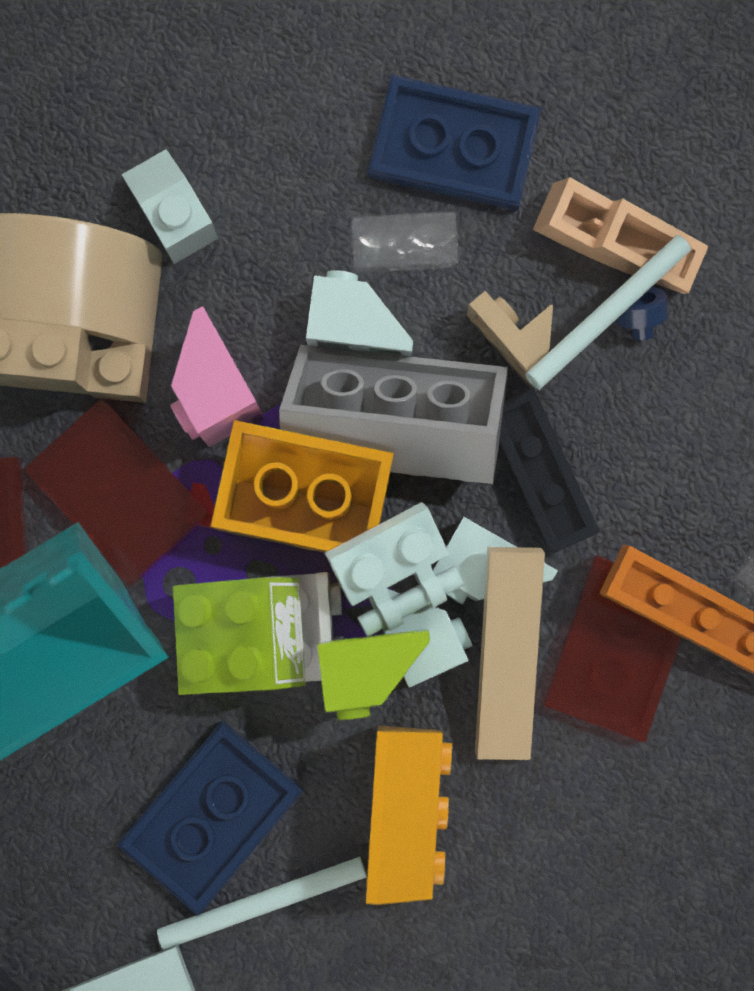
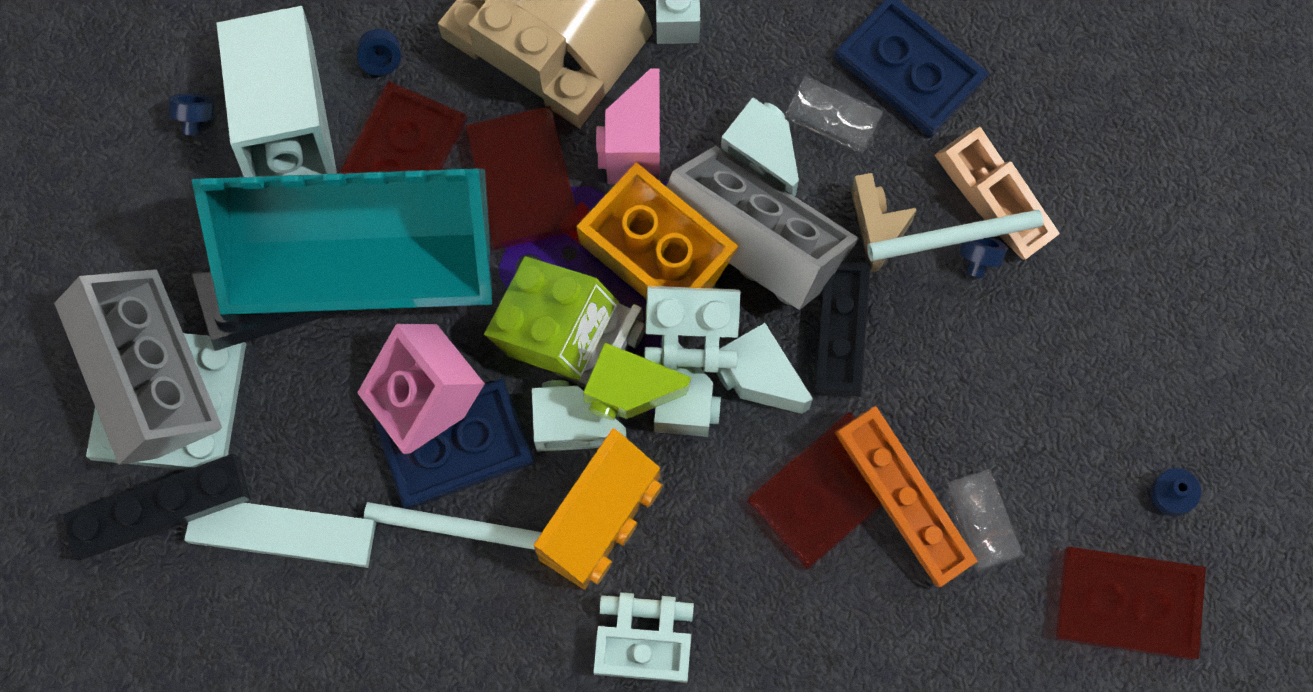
camera: 30 degrees right, 10 degrees down
(141, 783) = (419, 385): none -> bright pink slope
(311, 735) = (565, 421): none -> light aqua slope
(509, 652) = (742, 440): tan tile -> none
(529, 926) = (643, 653): none -> light aqua plate

